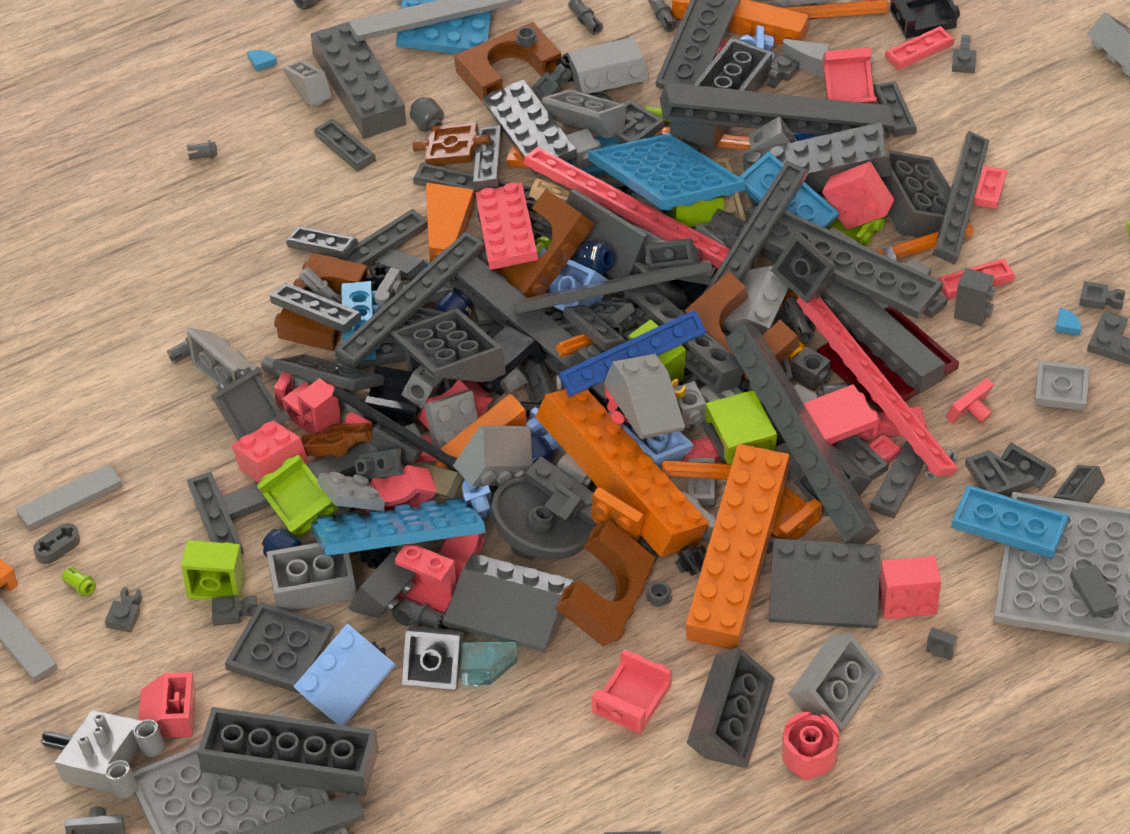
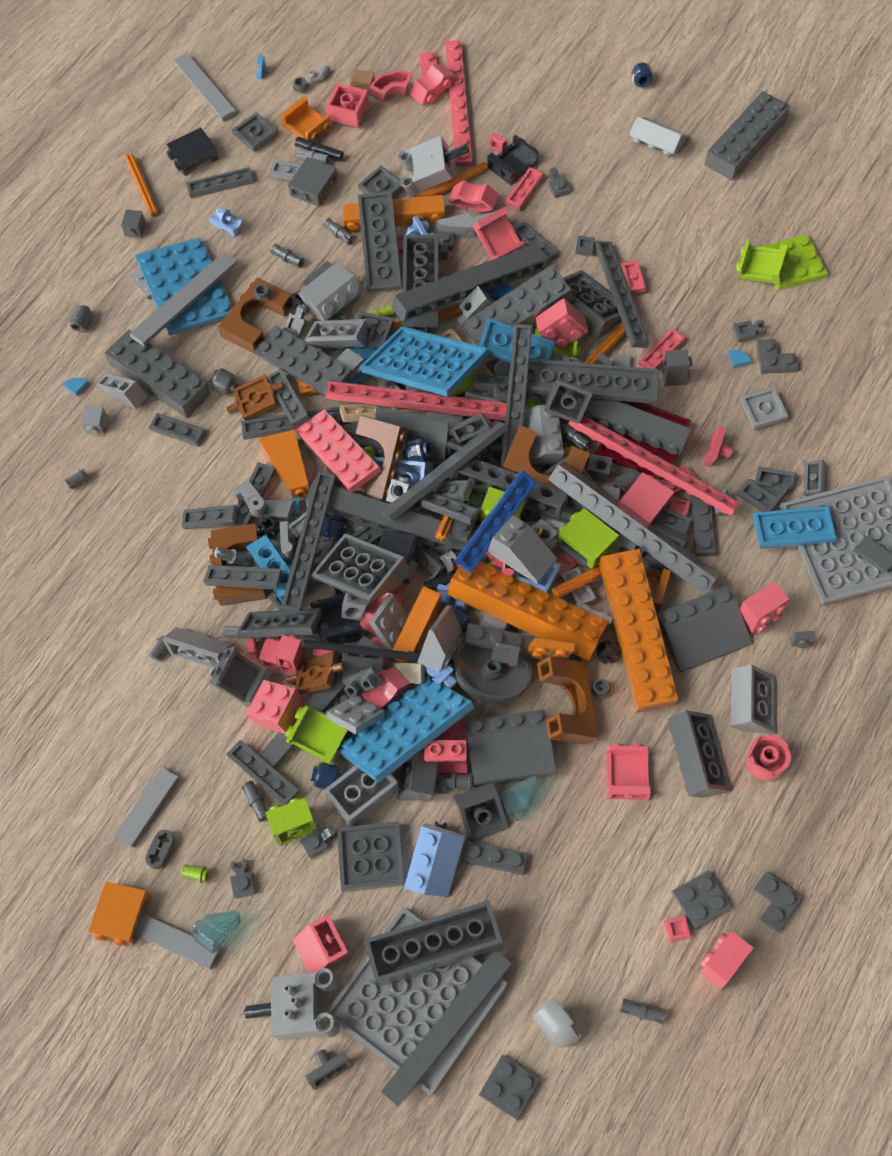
camera: 25 degrees left, 15 degrees up
(65, 640) = (215, 929): none -> clear light blue slope
(190, 532) = (255, 801): none -> dark grey pin
(258, 98) = (94, 419): none -> light grey brick
(376, 232) = (251, 497): none -> light grey leg
(419, 711) = (494, 857): none -> dark grey plate
(549, 285) = (393, 492): none -> light grey brick
(847, 31) = (471, 196): none -> coral brick
(952, 131) = (585, 245): none -> dark grey plate

